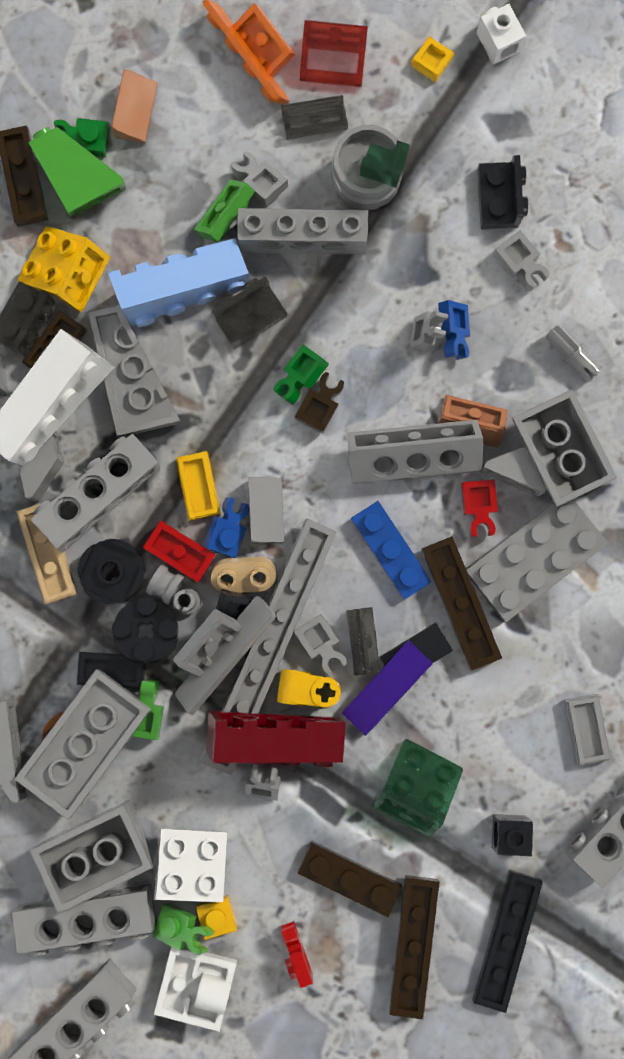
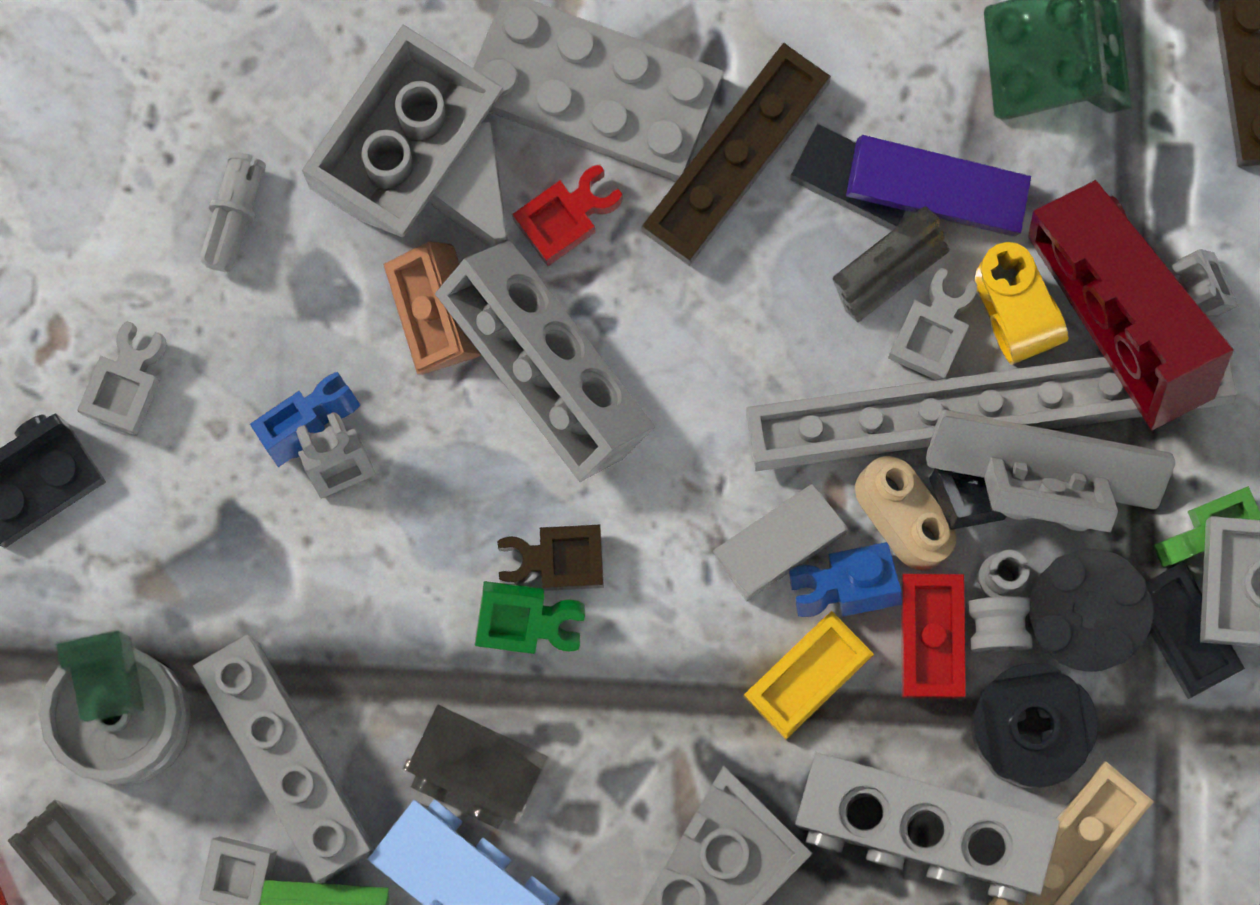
camera: 115 degrees left, 5 degrees down
(391, 550) = (720, 311): blue plate -> none

